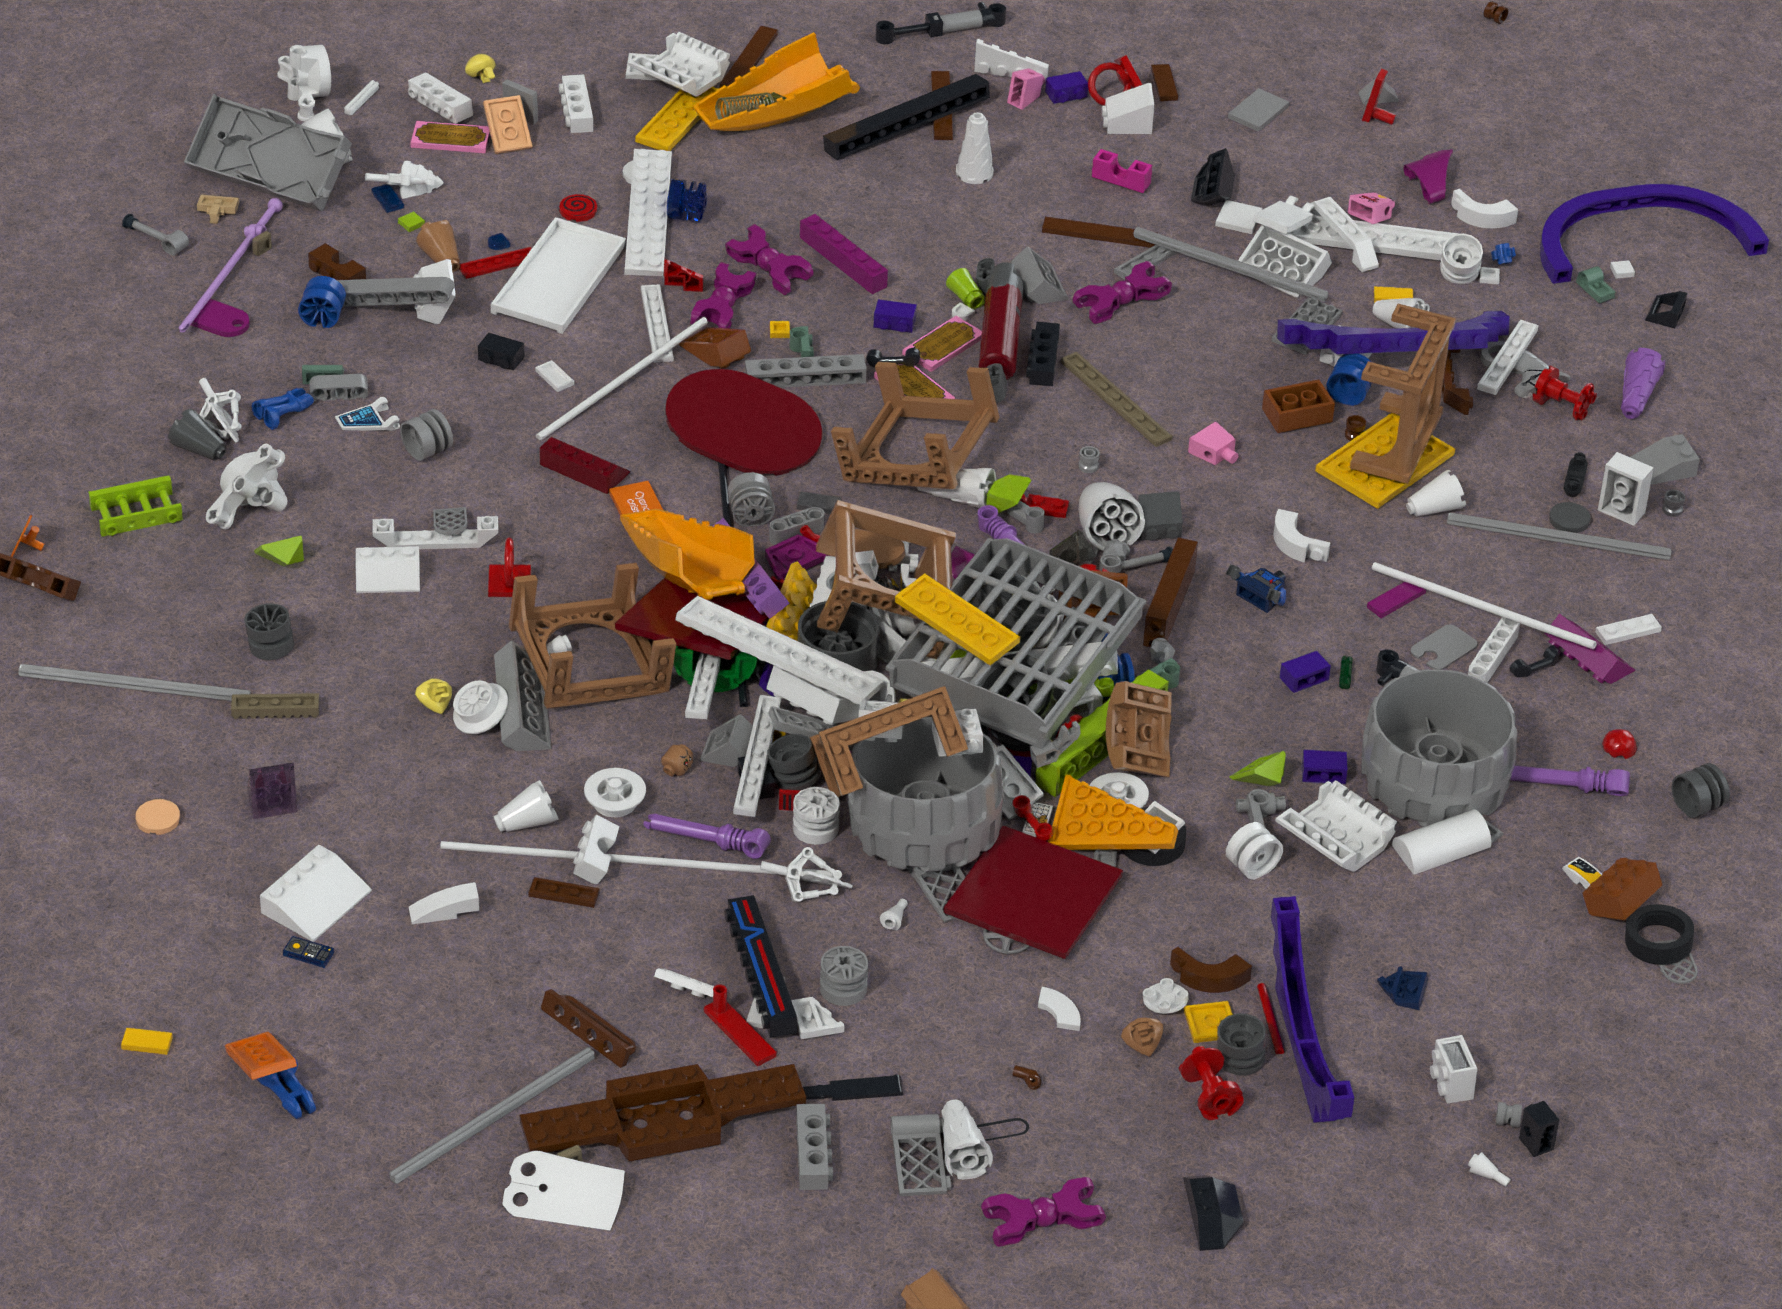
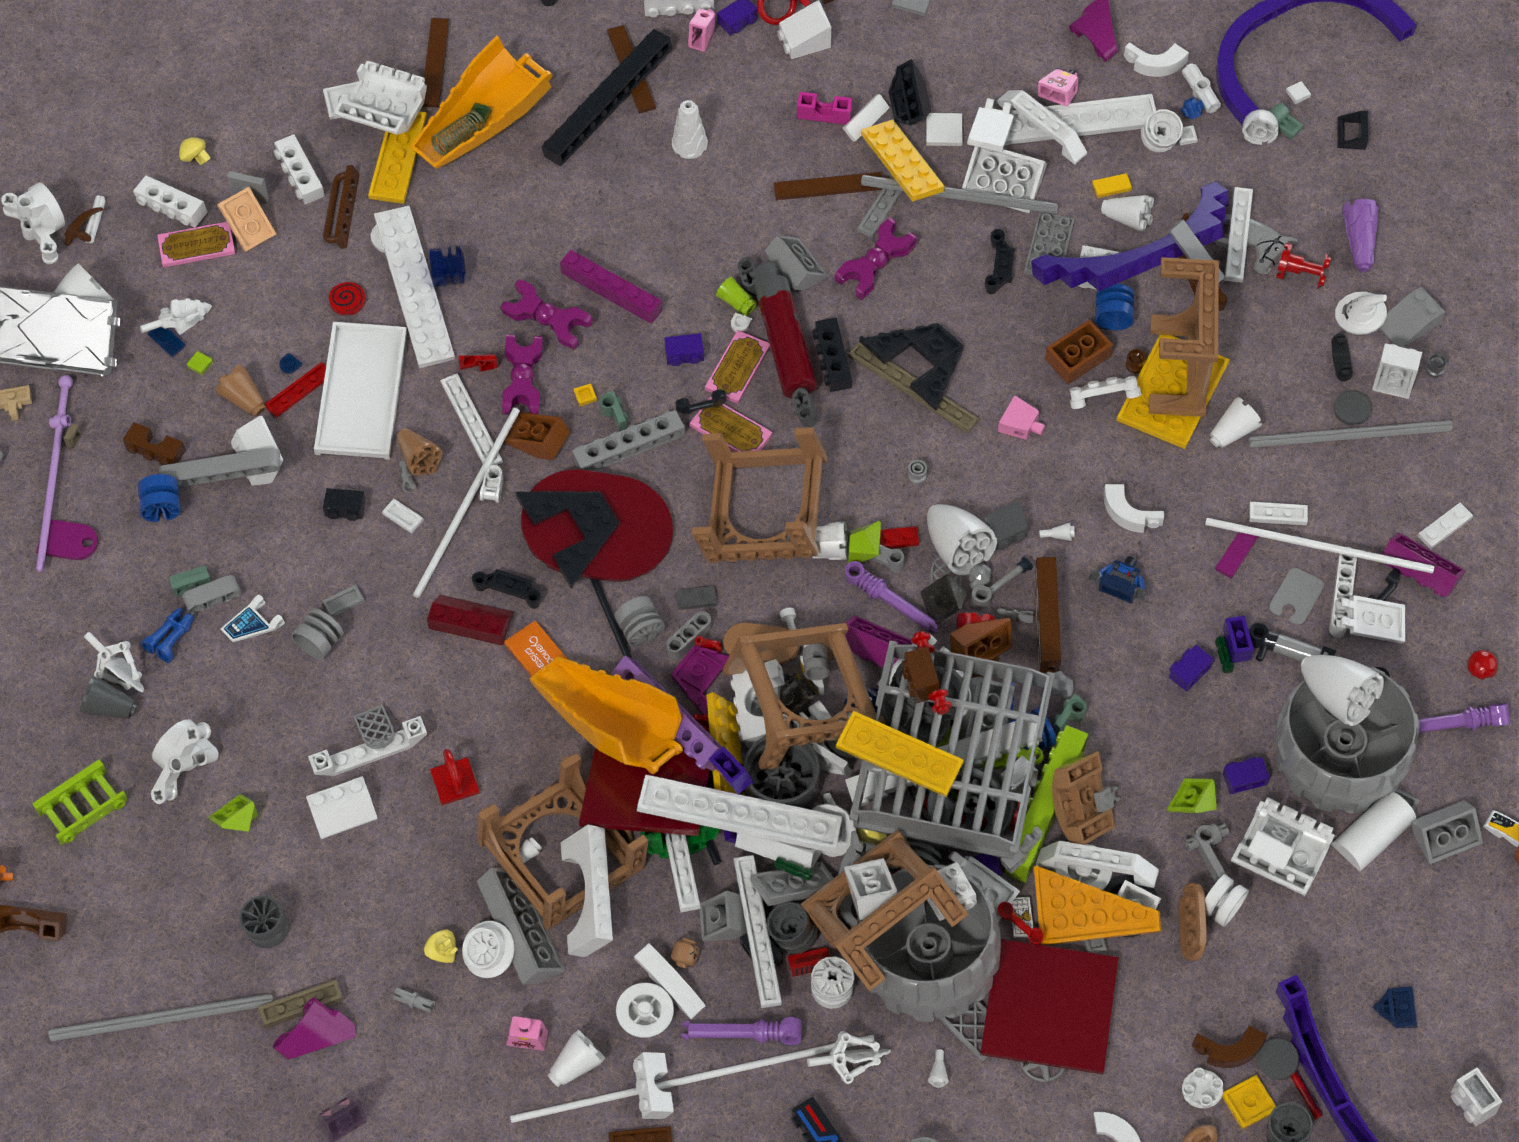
camera: 15 degrees left, 20 degrees up
(278, 723) = (316, 1030): none -> magenta panel
(341, 101) = (73, 229): none -> reddish brown piece
(388, 730) = (414, 1000): none -> light grey pin
(467, 423) = (343, 601): none -> light grey tile
(488, 778) = (526, 1033): none -> bright pink torso
(572, 347) = (406, 477): none -> light grey piece
(589, 155) = (346, 207): none -> reddish brown piece
(593, 331) = (419, 453): none -> medium nougat cone
(611, 659) = (594, 927): none -> white arch
(632, 447) = (508, 584): none -> black plate
(648, 768) = (667, 978): none -> white slope
(654, 370) = (492, 487): none -> white piece
(738, 406) = (591, 517): none -> black wing
(785, 611) = (730, 770): none -> dark purple brick
(816, 714) = (793, 868): none -> dark green axle
(913, 564) = (815, 662): none -> light grey wheel
(1005, 555) = (921, 675): none -> reddish brown brick
(1141, 591) = (1025, 616): none -> light grey piece
(1152, 370) = (933, 344): none -> black wing
(1162, 189) = (866, 117): none -> white tile
(1166, 745) = (1104, 798): none -> light grey plate
(1174, 796) = (1099, 858): none -> white slope
(1183, 225) = (902, 160): none -> yellow plate
(1213, 860) = (1192, 922): none -> medium nougat tile
(1218, 539) = (1062, 532): none -> white cone
(1250, 328) = (1003, 262): none -> black plate
(1256, 993) = (1278, 1059): none -> dark grey tile
(1325, 813) = (1274, 842): none -> white slope
(1338, 440) = (1111, 385): none -> white plate
(1364, 659) = (1238, 639): none -> dark purple brick
(1446, 679) = (1342, 686): none -> white cylinder
(1453, 577) = (1278, 513): none -> white plate
(1457, 360) = (1189, 243): none -> light grey tile
(1514, 675) = (1373, 618): none -> white tile
(1520, 240) = (1201, 88): none -> white piece
(1521, 862) = (1447, 831): none -> light grey slope
(1567, 280) = (1260, 127): none -> white cylinder
(1615, 439) = (1361, 312): none -> white piece

